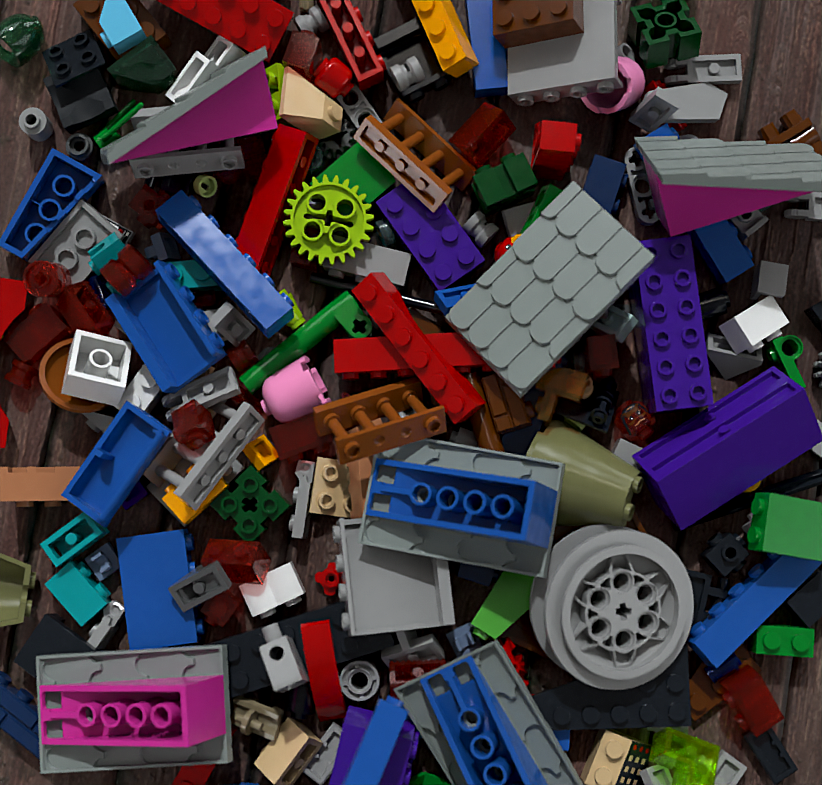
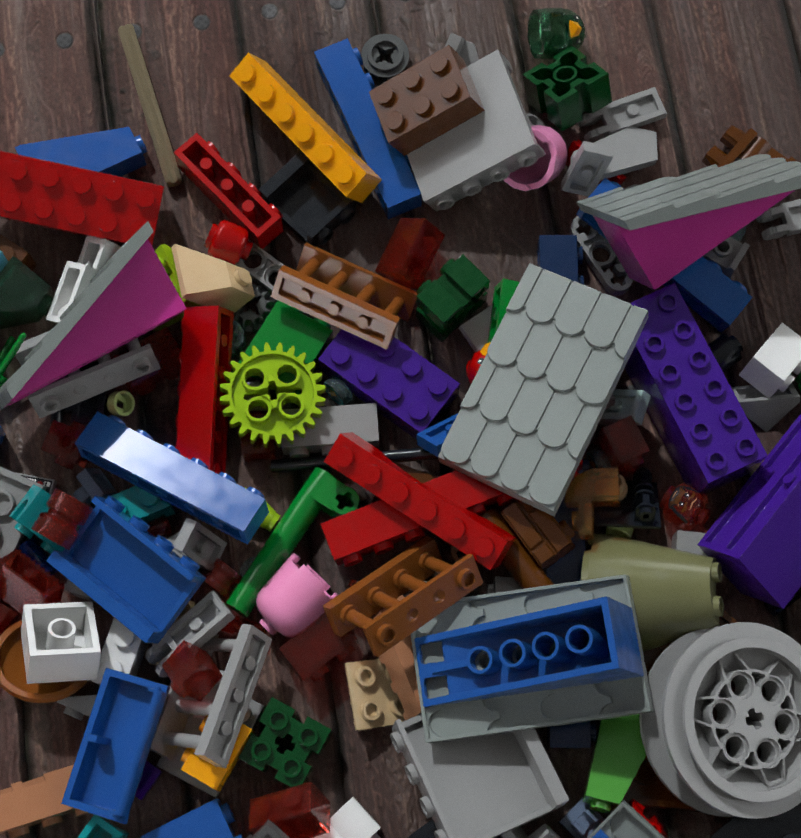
camera: 20 degrees left, 10 degrees down
(261, 452) = (278, 681): light orange plate -> none
(300, 521) = (342, 717): light grey hinge -> none
(303, 53) = (187, 225): clear red brick -> none
(312, 22) = (184, 196): light grey wheel -> none
(323, 578) = (396, 803): red plate -> none
(407, 73) = (307, 214): light grey wheel -> none
(480, 229) = (439, 353): light grey wheel -> none
(554, 148) = (494, 238): red wedge -> none
(769, 280) = (773, 307): light grey panel -> none

